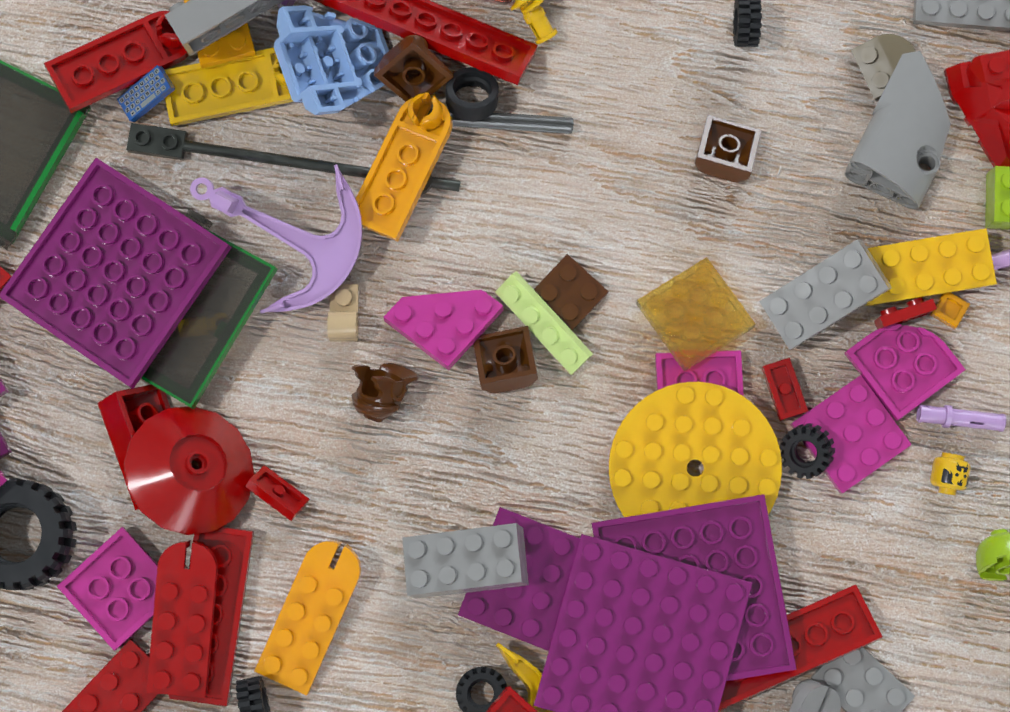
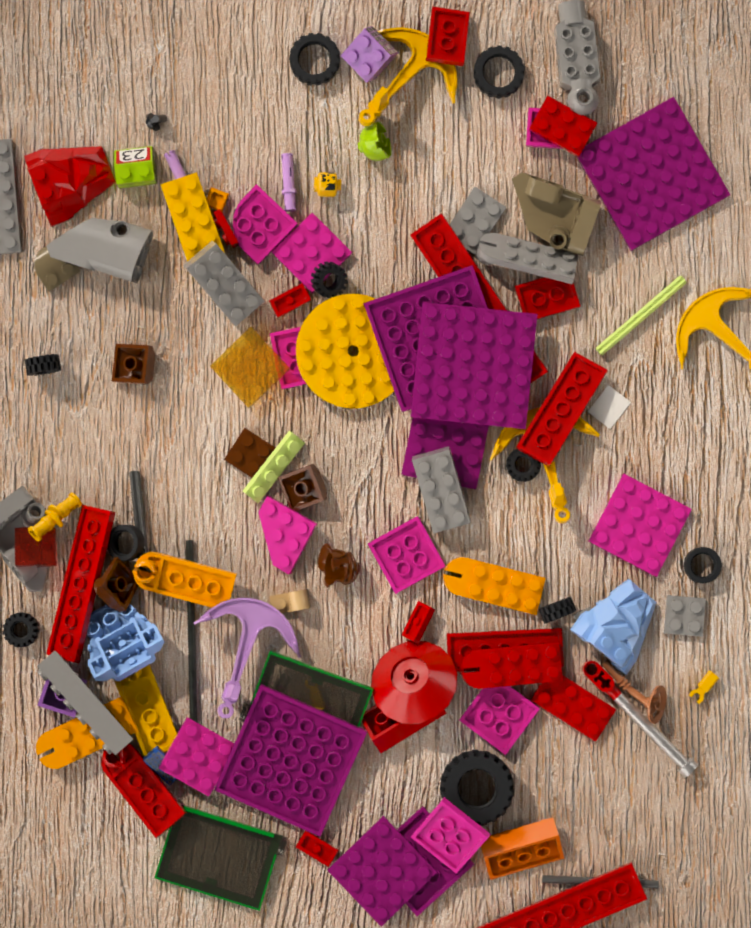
camera: 100 degrees left, 5 degrees up
(147, 141) = (197, 756): none -> dark pink plate
(379, 493) = (406, 554): none -> dark pink plate

